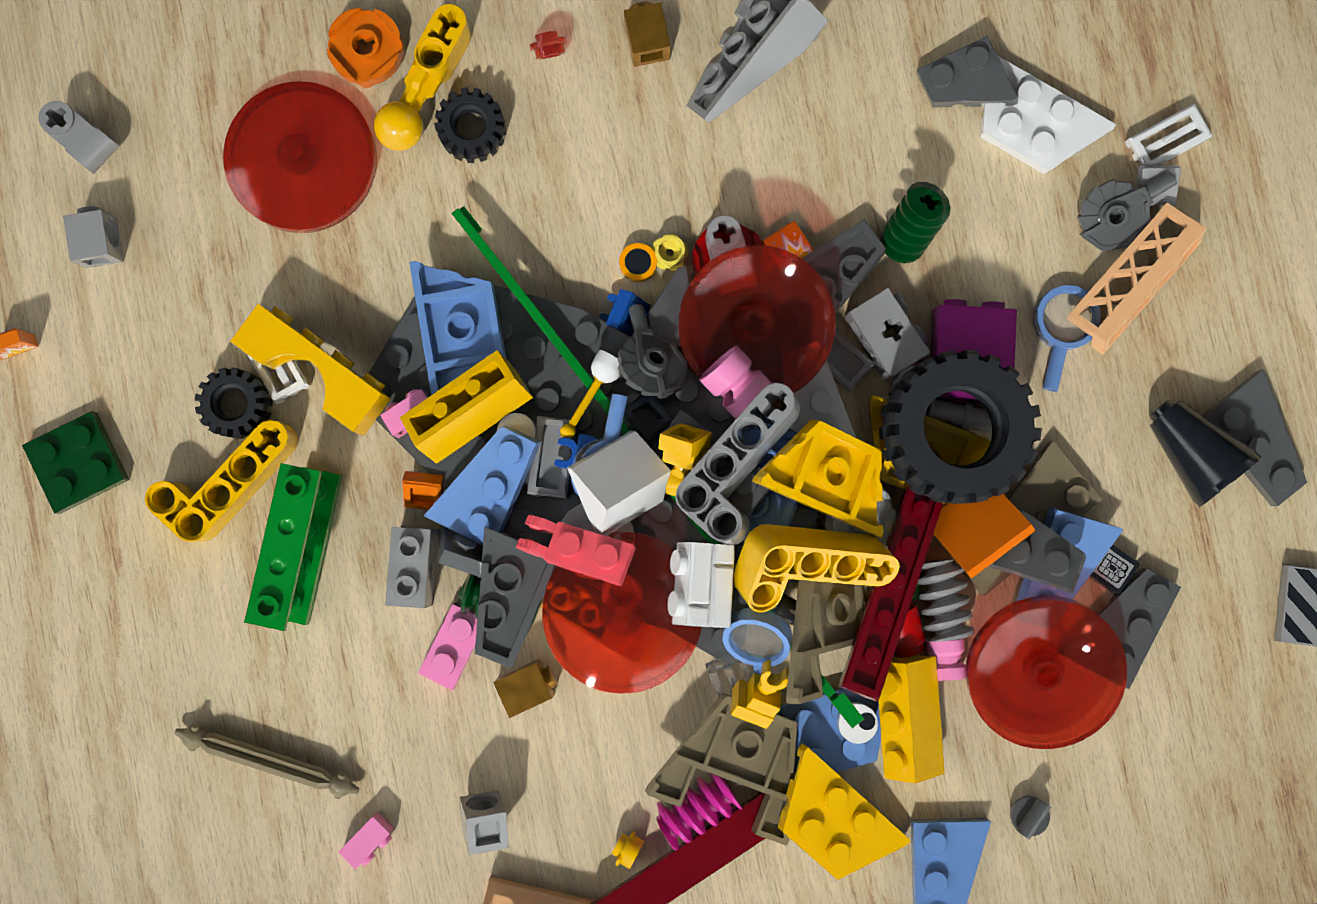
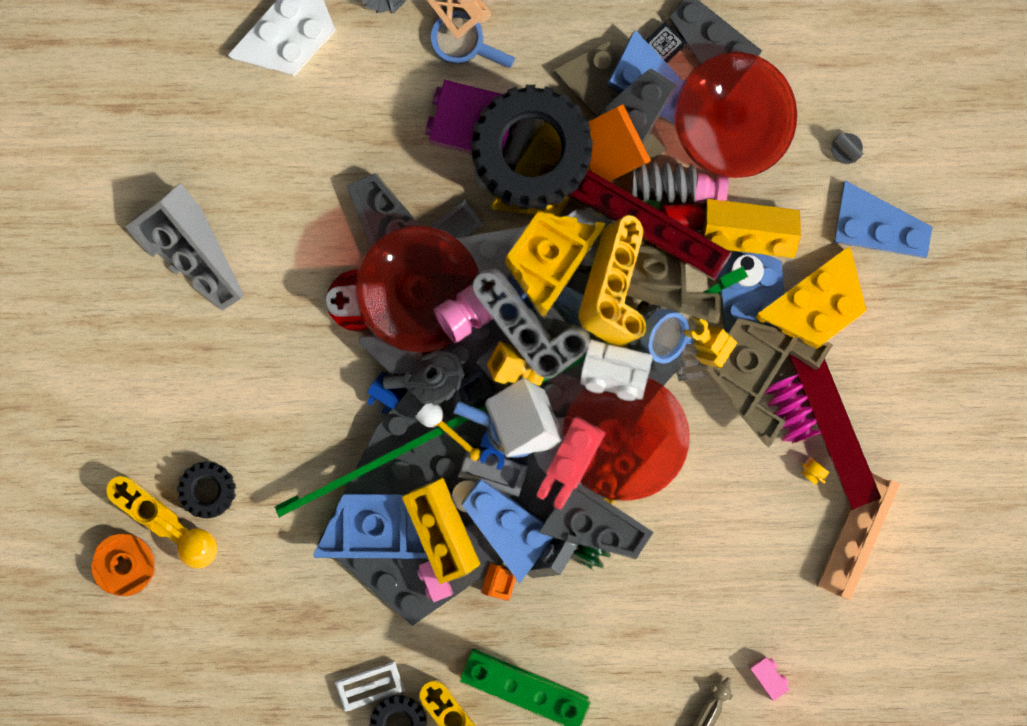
camera: 80 degrees left, 0 degrees up
(300, 157) = (204, 635): clear red dish -> none
(348, 396) = (413, 624): yellow arch -> none
(411, 567) = (558, 601): light grey brick -> none
(451, 648) = (628, 582): bright pink plate -> none
(484, 822) = (770, 580): light grey brick -> none
(526, 687) = (671, 528): pearl gold brick -> none
(548, 45) = (152, 414): clear red plate -> none
(638, 262) = (345, 374): tile -> none
(647, 33) = (158, 331): pearl gold brick -> none
(672, 242) = (350, 347): light yellow plate -> none
(790, 239) = (353, 249): tile -> none
(873, 318) = (431, 198): light grey brick -> none
(915, 222) = (359, 146): dark green piece -> none
(967, 78) = (247, 78): dark grey wing -> none

